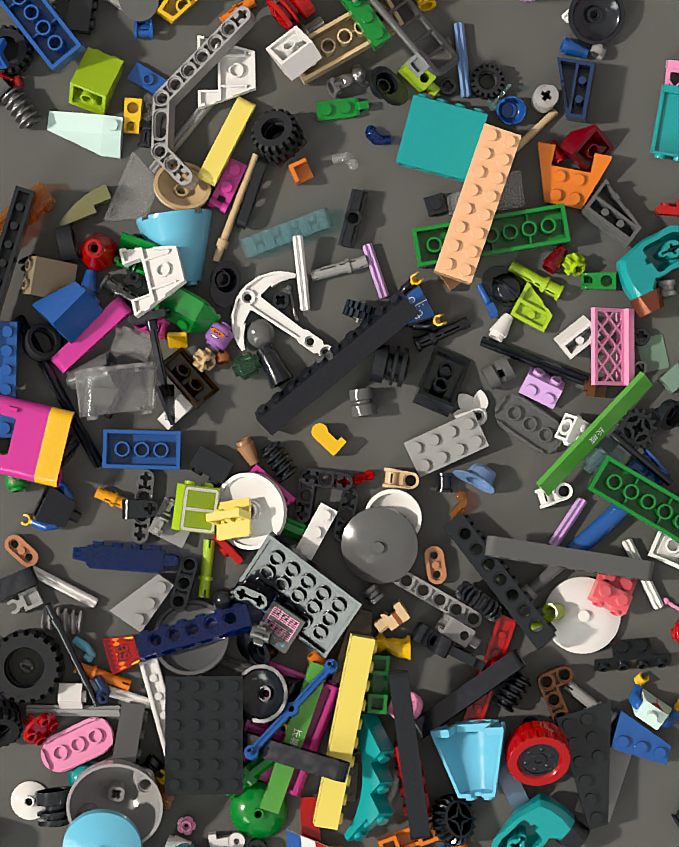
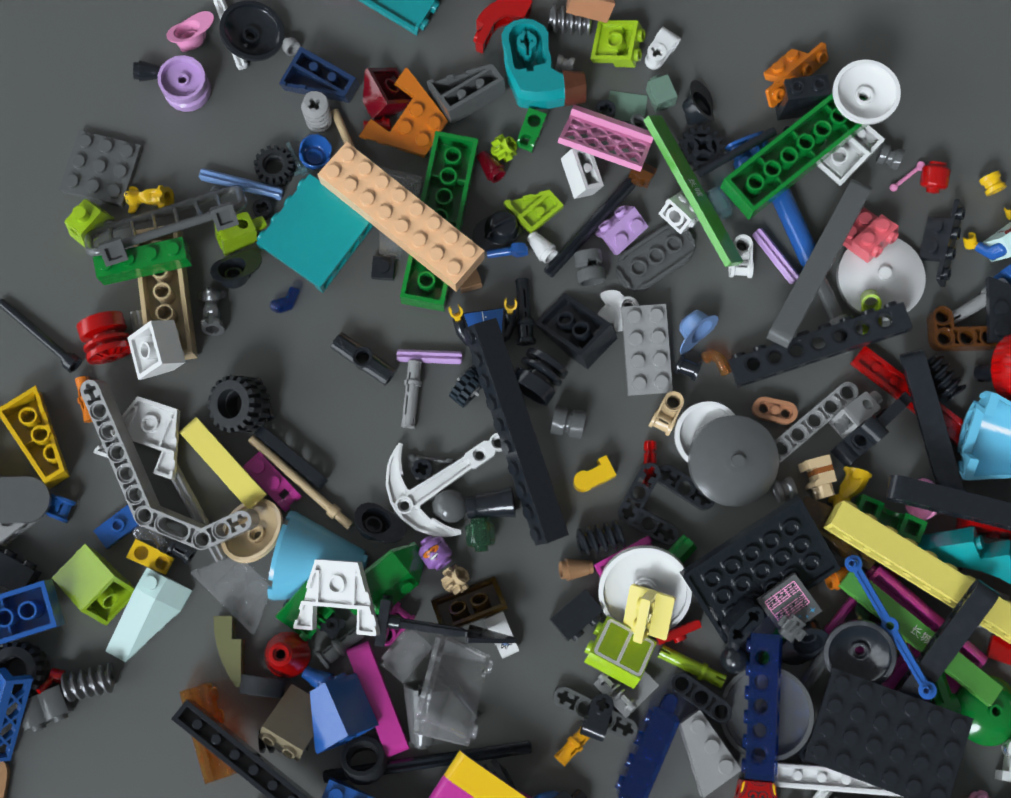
camera: 70 degrees left, 10 degrees down
(142, 449) = (531, 688): blue brick -> none
(177, 339) = (421, 601): yellow slope -> none
(223, 358) = (462, 557): dark orange hinge -> none
(283, 233) = (350, 436): clear light blue beam -> none
(300, 171) = (289, 396): orange panel -> none
(301, 272) = (400, 435): white axle -> none
(316, 530) = (692, 524): white arch -> none
(340, 109) = (239, 329): green hinge -> none
(347, 158) = (294, 342): clear arm -> none
(479, 601) = (833, 375): black gear -> none
(544, 284) = (512, 187): lime pin -> none
(573, 48) = (276, 69): blue cone -> none
(649, 587) = (876, 197): white axle -> none

